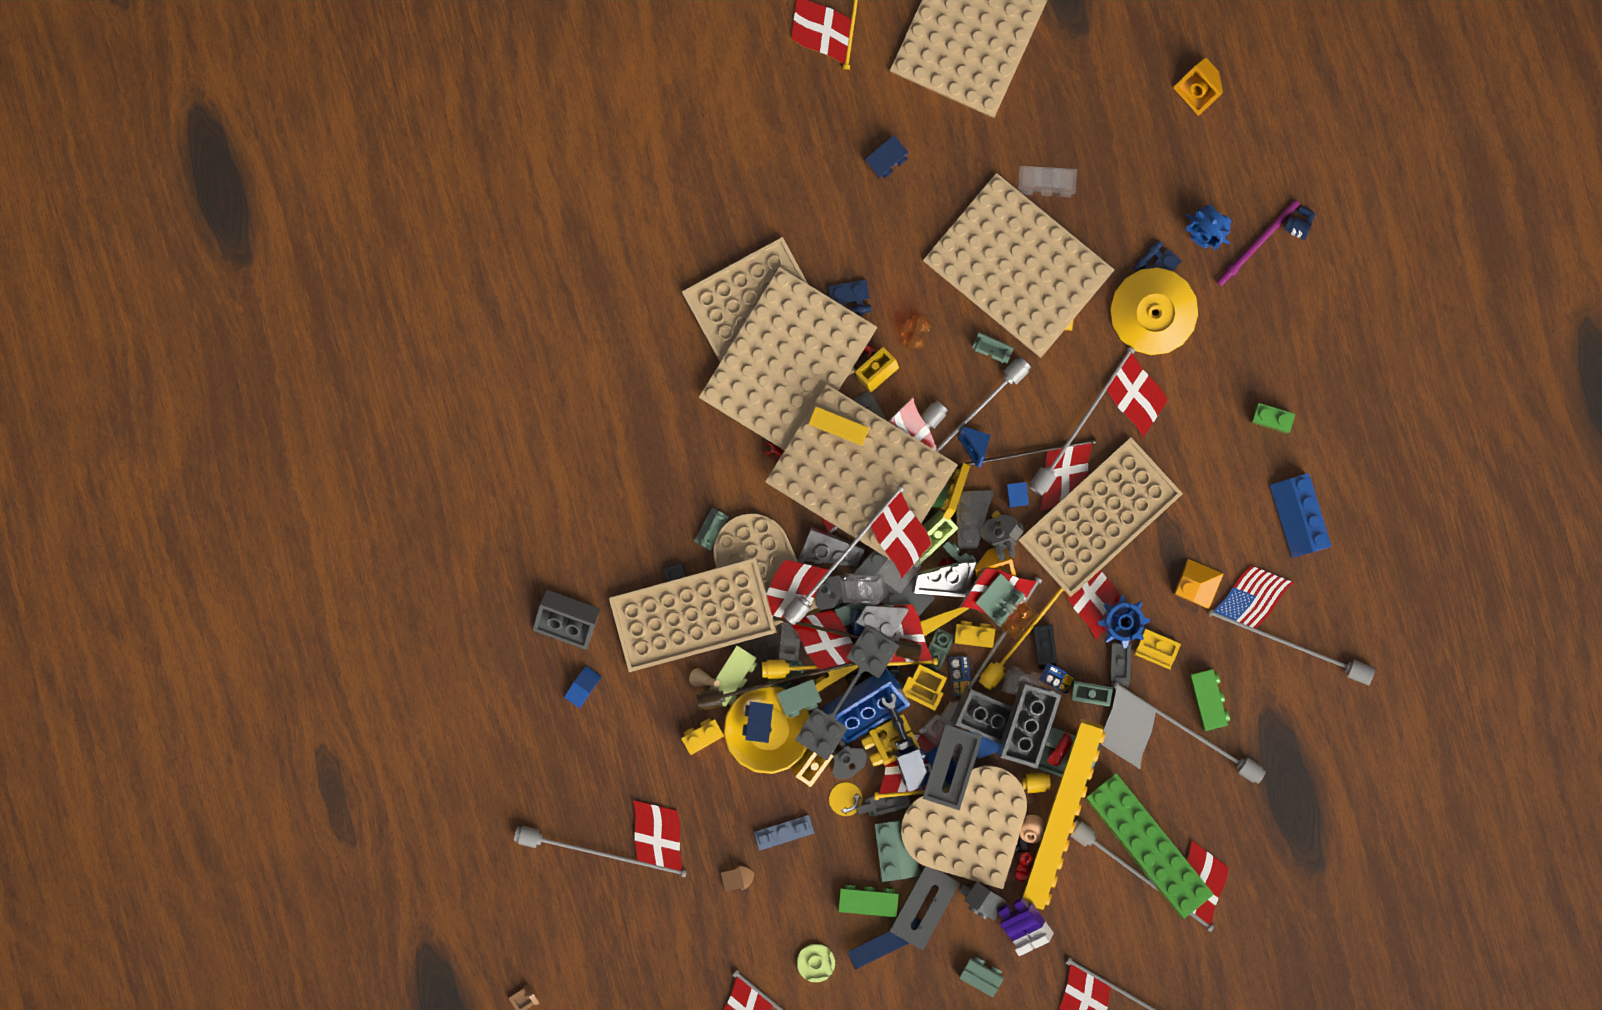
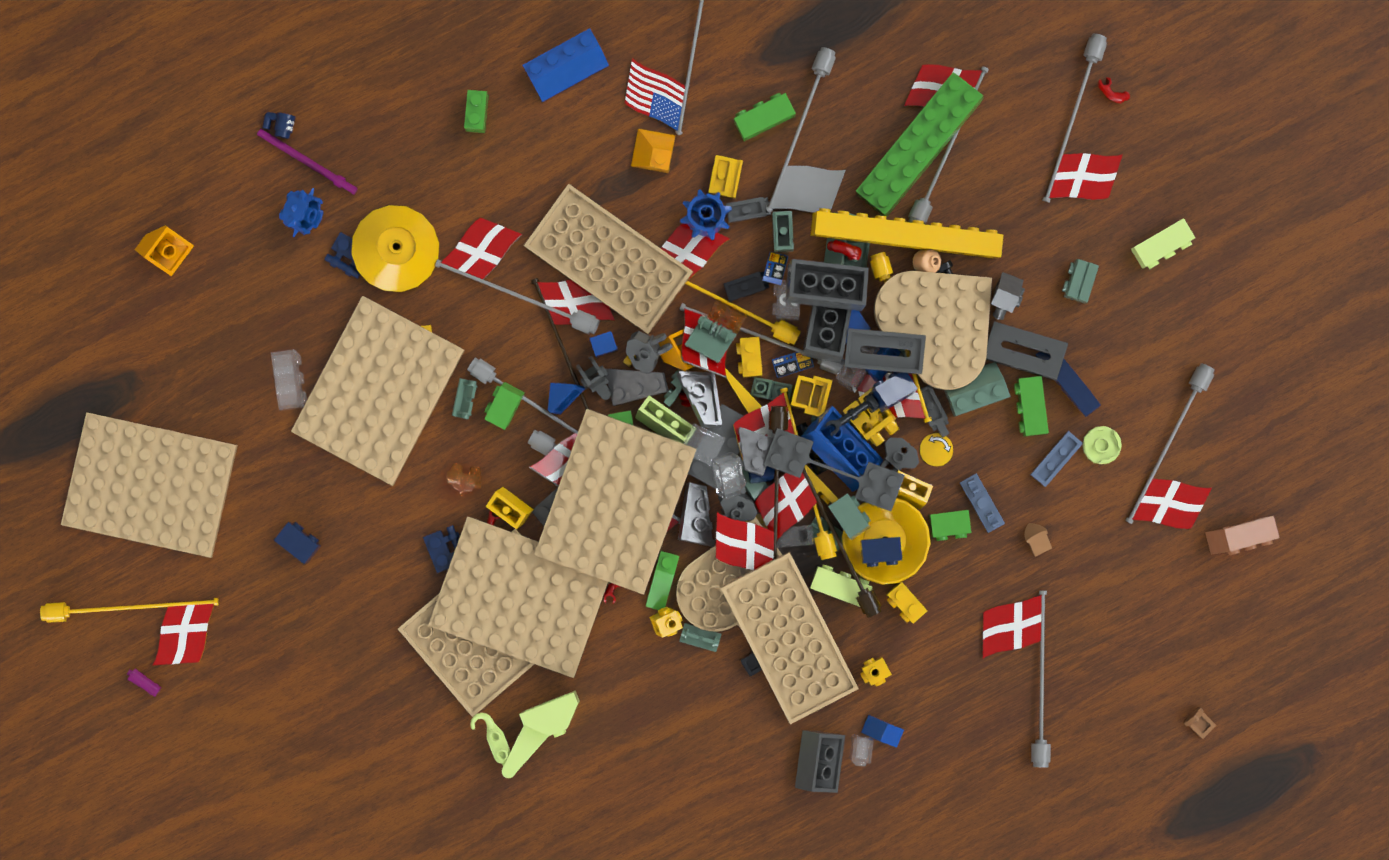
camera: 105 degrees left, 0 degrees up
(569, 661) = (861, 750): none -> clear brick
(640, 699) = (879, 678): none -> yellow brick
(660, 353) = (539, 723): none -> yellowish green slope
(701, 678) = (849, 617): tan cone -> none
(733, 499) = (666, 622): none -> yellow brick
(770, 796) = (949, 524): none -> bright green brick
(774, 503) = (662, 580): none -> bright green slope
(811, 914) = (1056, 458): none -> sand blue plate
(839, 426) = (573, 533): yellow tile -> none
(897, 533) = (667, 452): flag -> none
(955, 491) = (613, 405): yellow plate -> none
(978, 385) = (504, 405): none -> bright green brick
(985, 479) = (595, 379): none -> dark grey hinge
(1023, 868) = (965, 262): red piece -> none
(1025, 926) = (1023, 248): dark purple hips -> none

